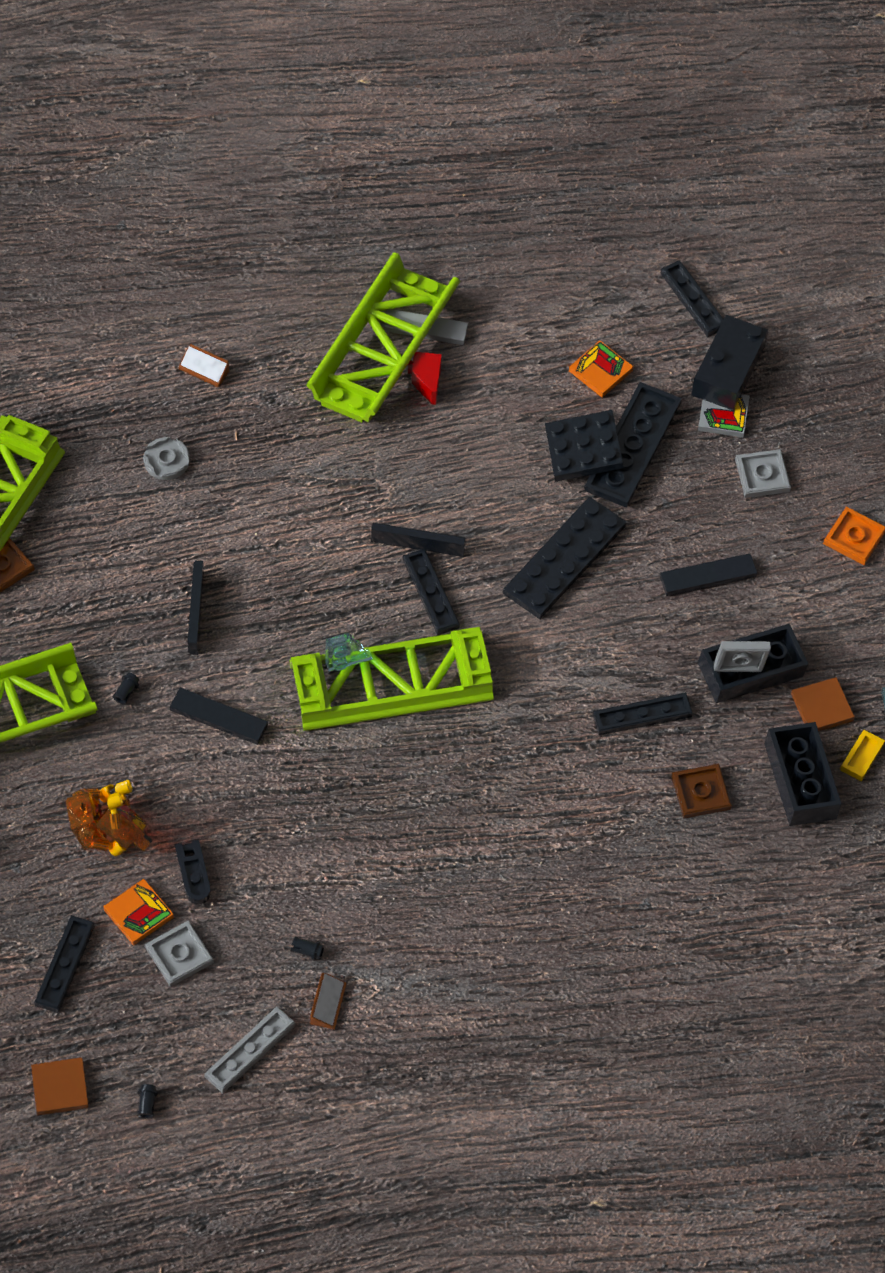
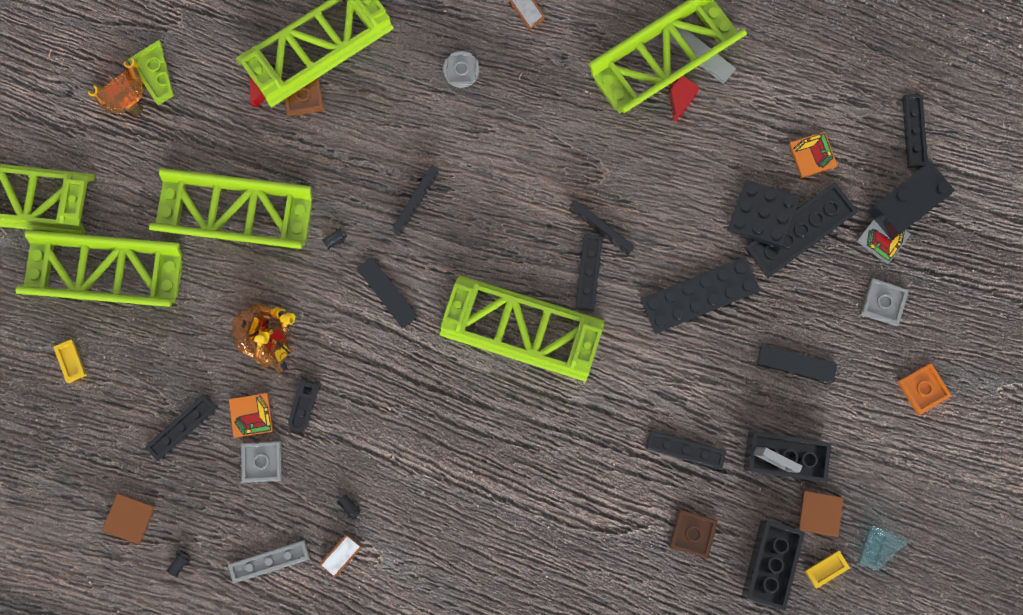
camera: 30 degrees right, 20 degrees up
(344, 651) = (491, 297): clear light blue wing -> none

